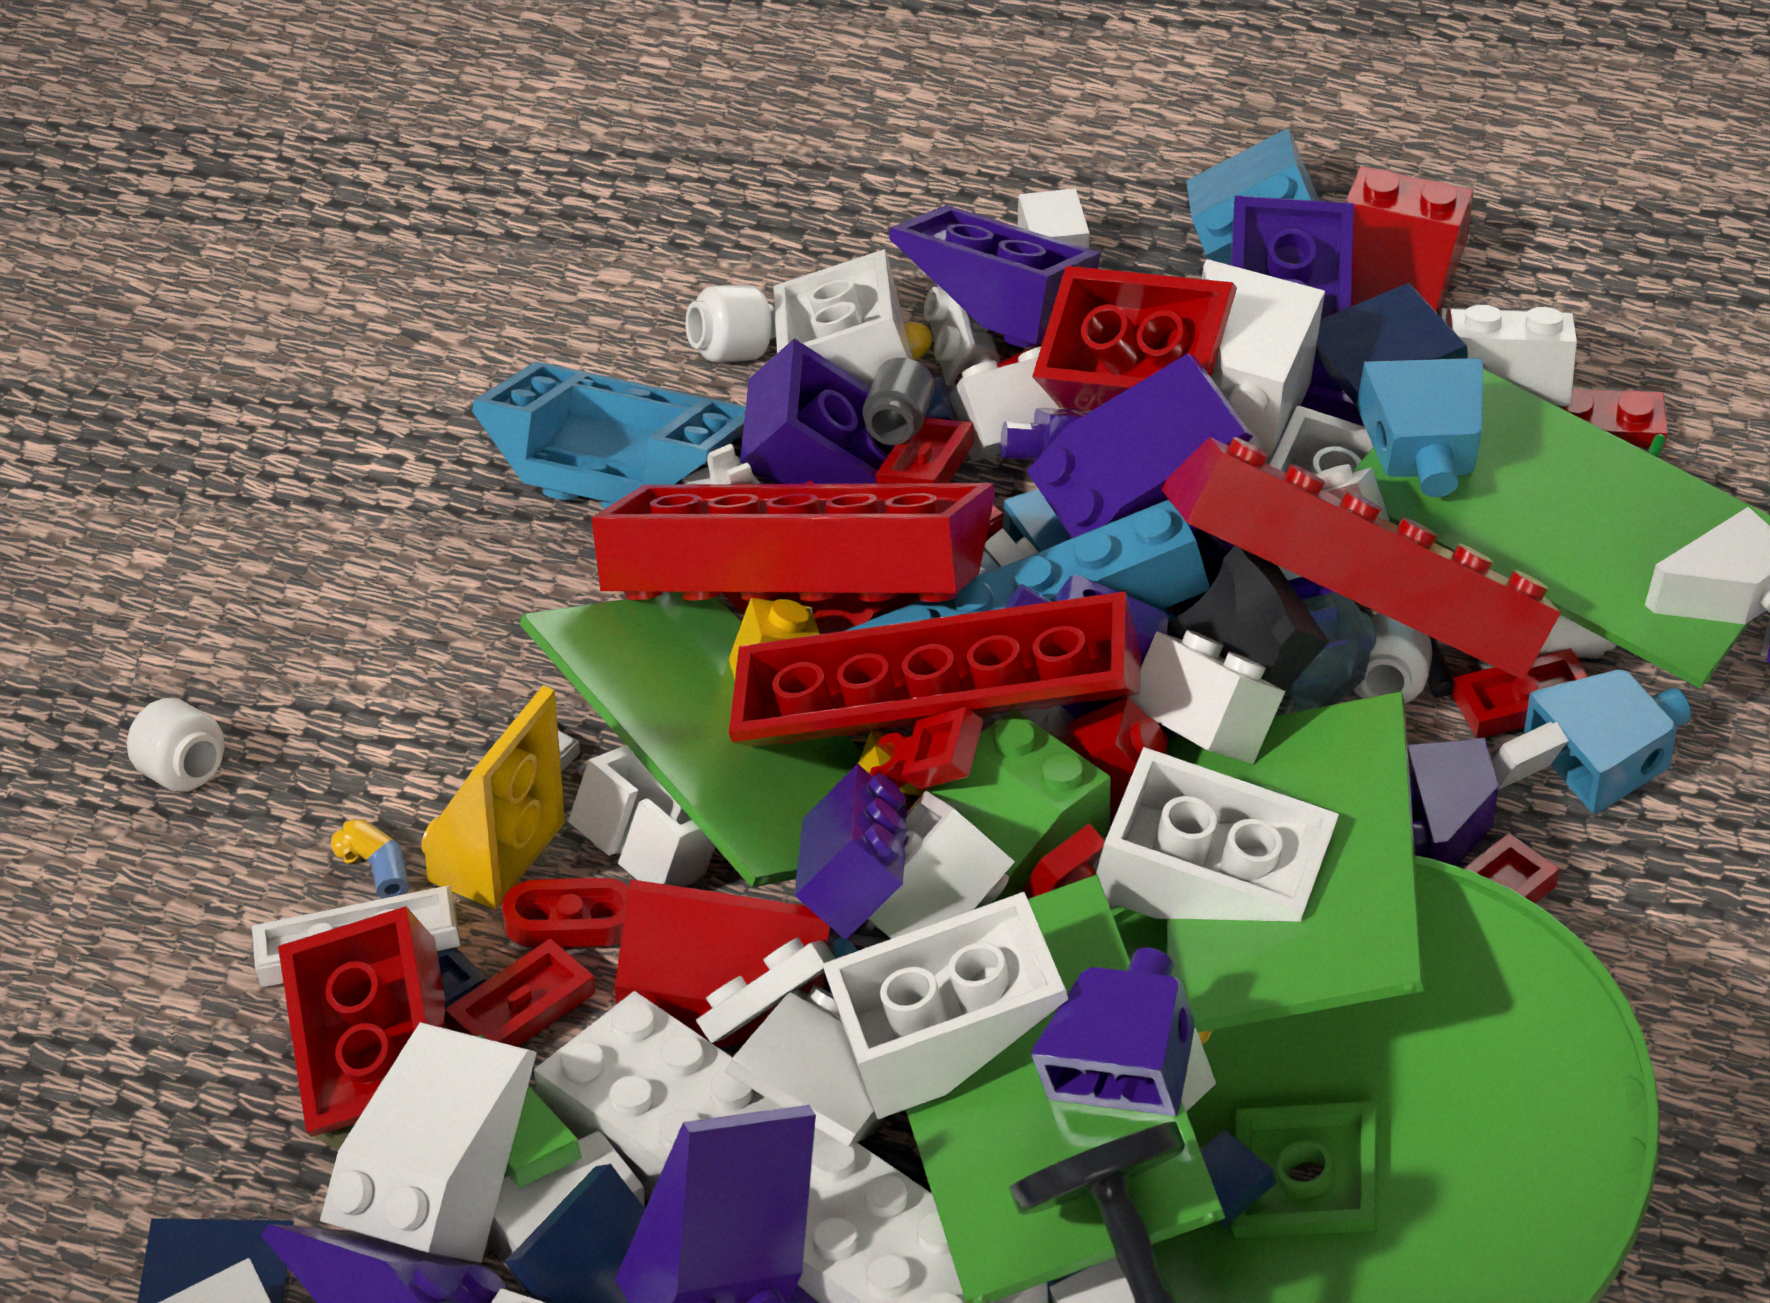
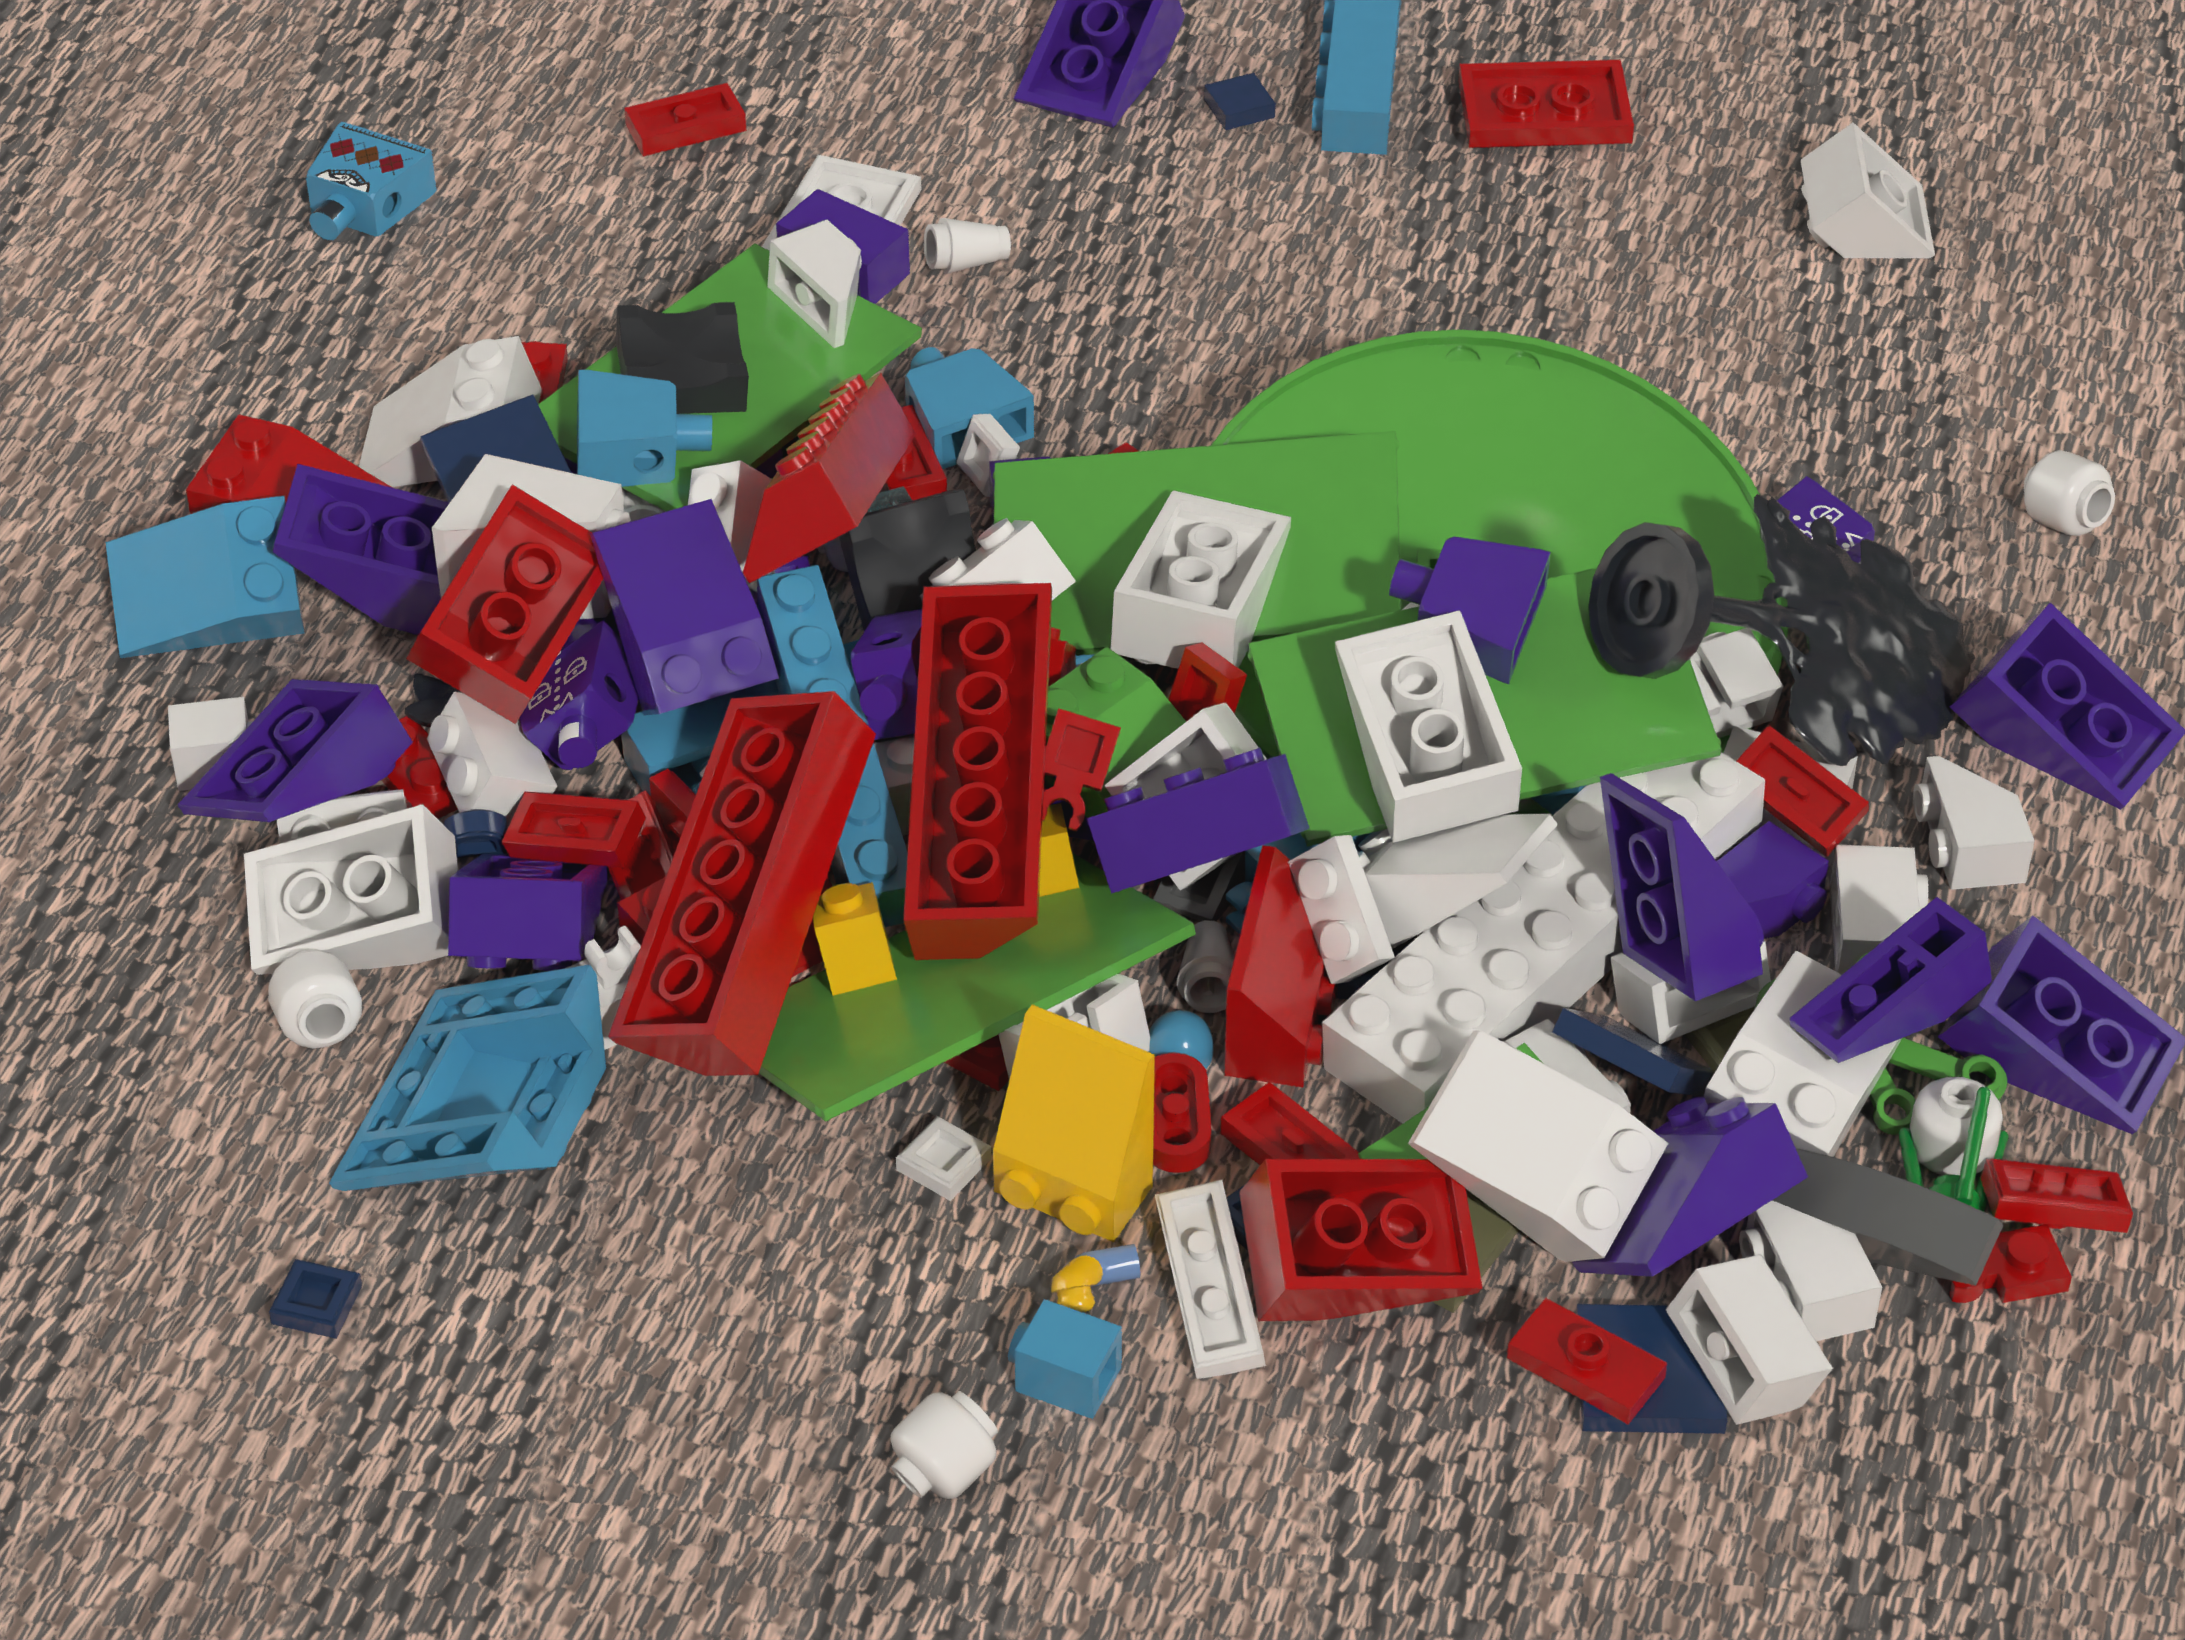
camera: 90 degrees left, 0 degrees up
(206, 1213) = (1587, 1360): none -> red plate
(263, 828) = (1066, 1358): none -> dark azure brick
(405, 362) = (315, 1298): none -> dark blue tile
(898, 400) = (508, 831): dark grey brick -> none
(1564, 465) = (691, 350): none -> black brick

